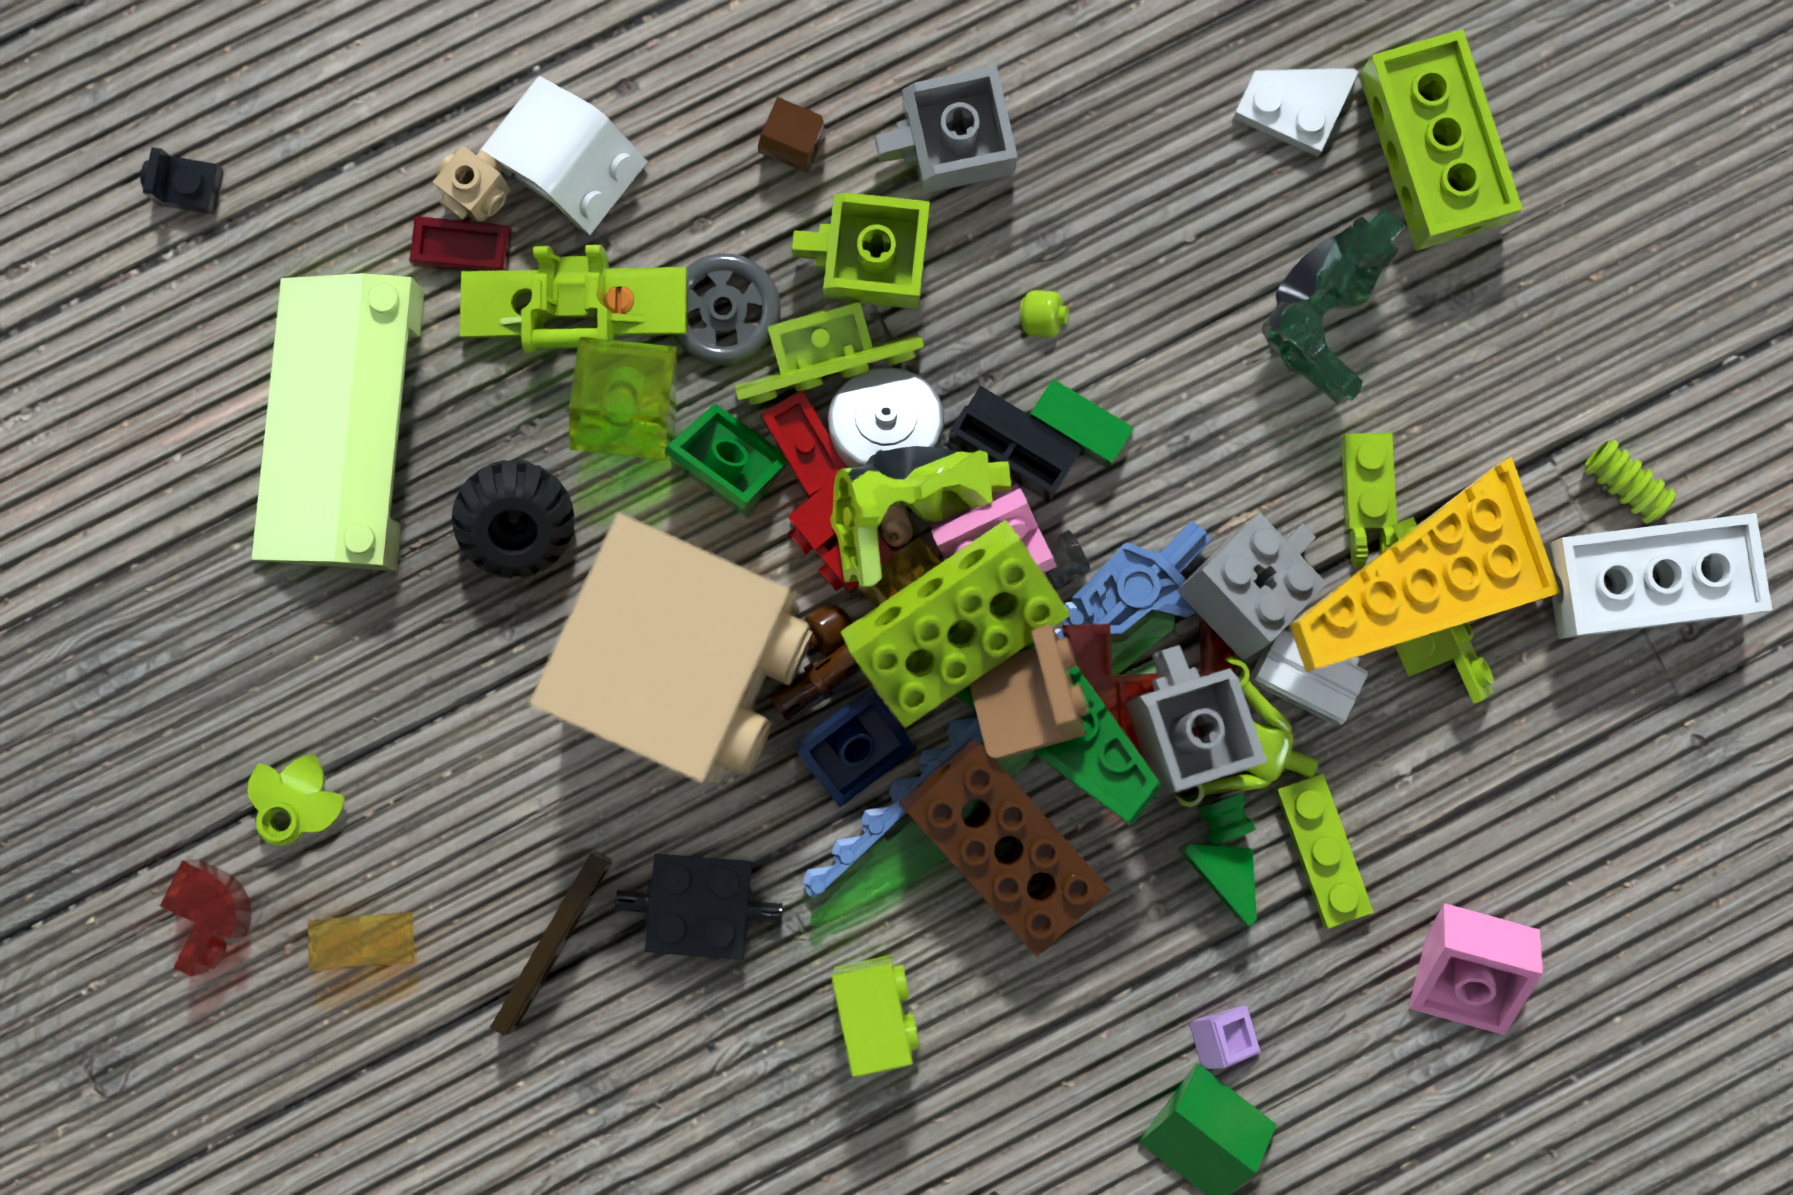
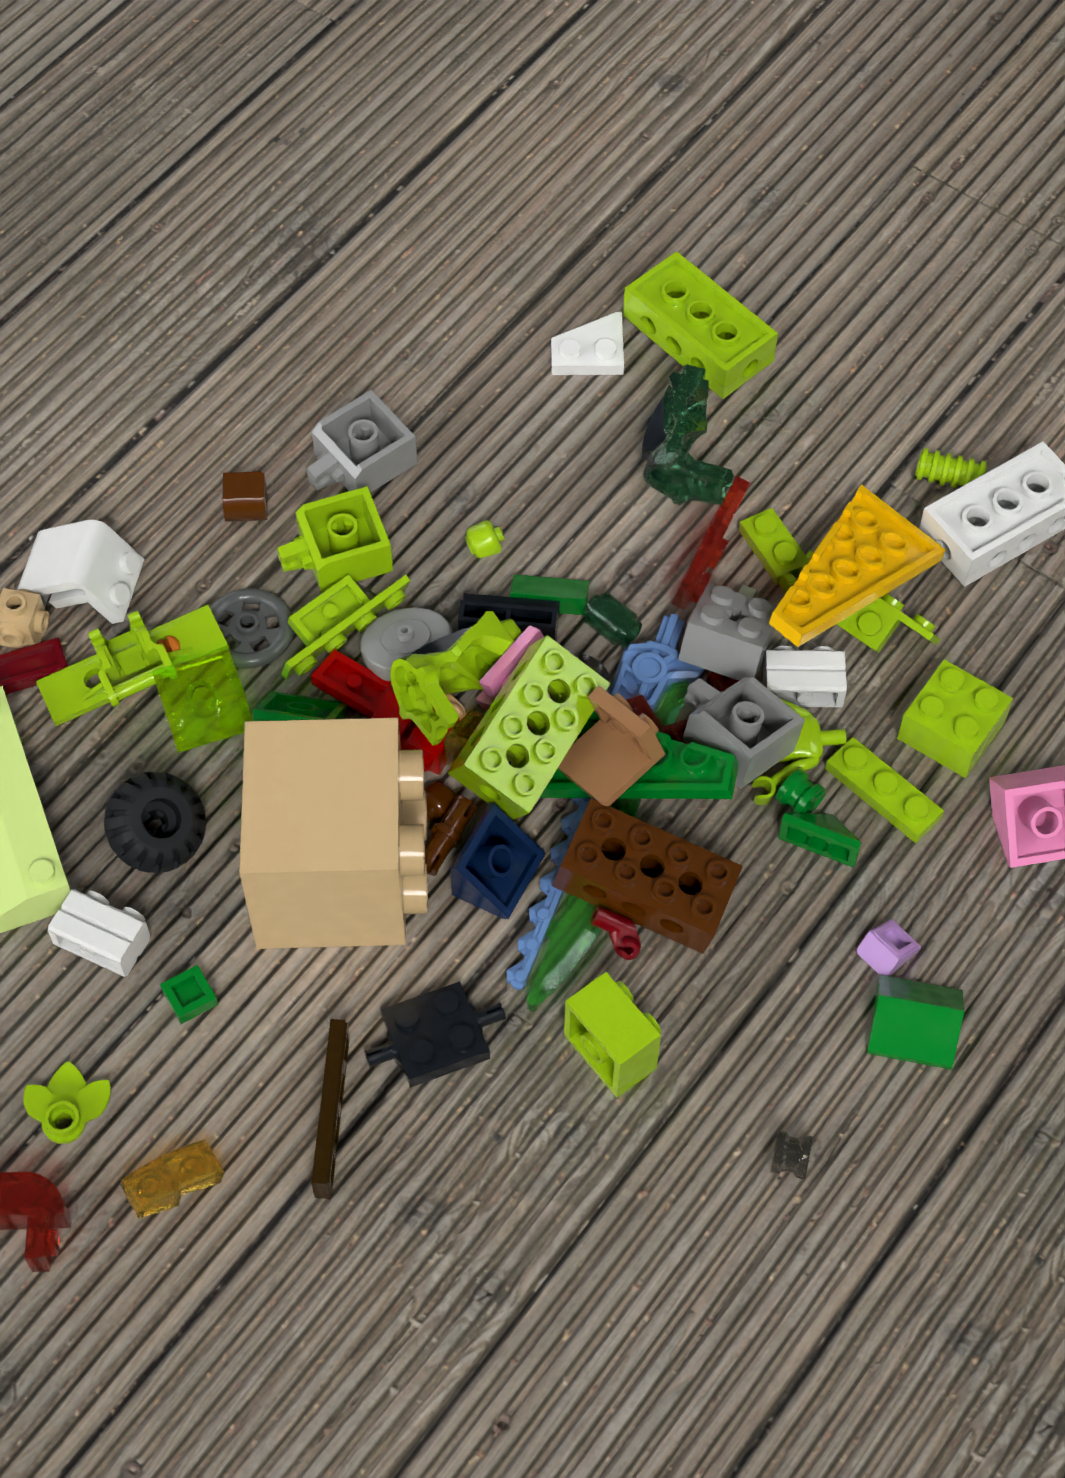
camera: 25 degrees left, 25 degrees down
(402, 623) = (100, 931): none -> white brick
(465, 740) = (189, 994): none -> green plate
(948, 888) = (621, 931): none -> dark red arm
(1131, 496) = (612, 619): none -> clear green brick
(1283, 474) = (710, 548): none -> clear red wing
(1449, 810) = (954, 718): none -> lime brick

